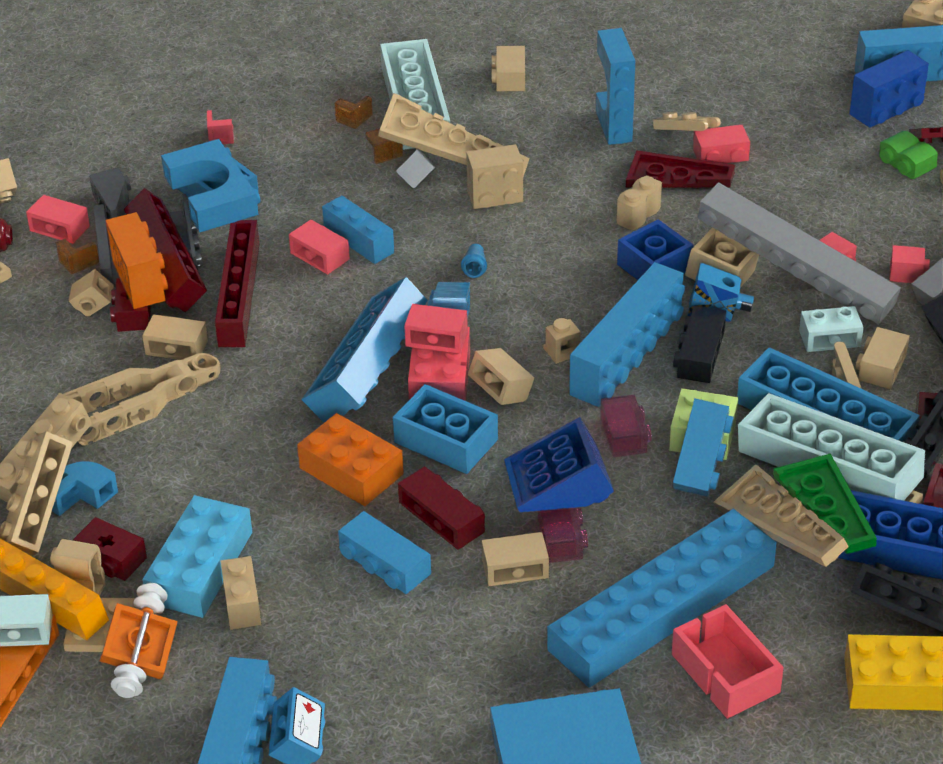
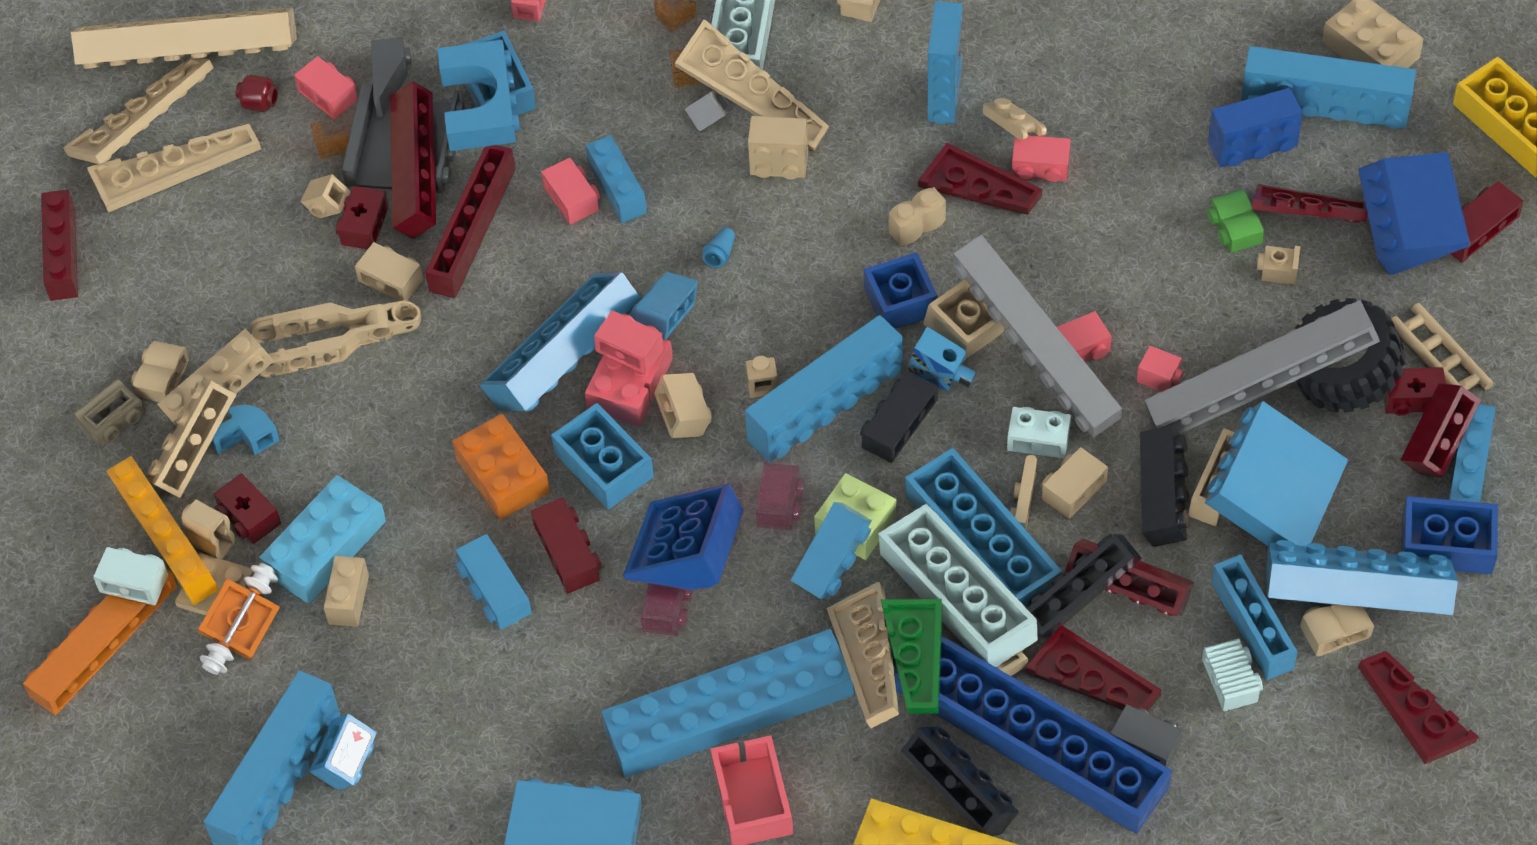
camera: 20 degrees right, 15 degrees up
(136, 260) = (371, 178): orange brick -> none
(515, 559) = (609, 622): tan brick -> none

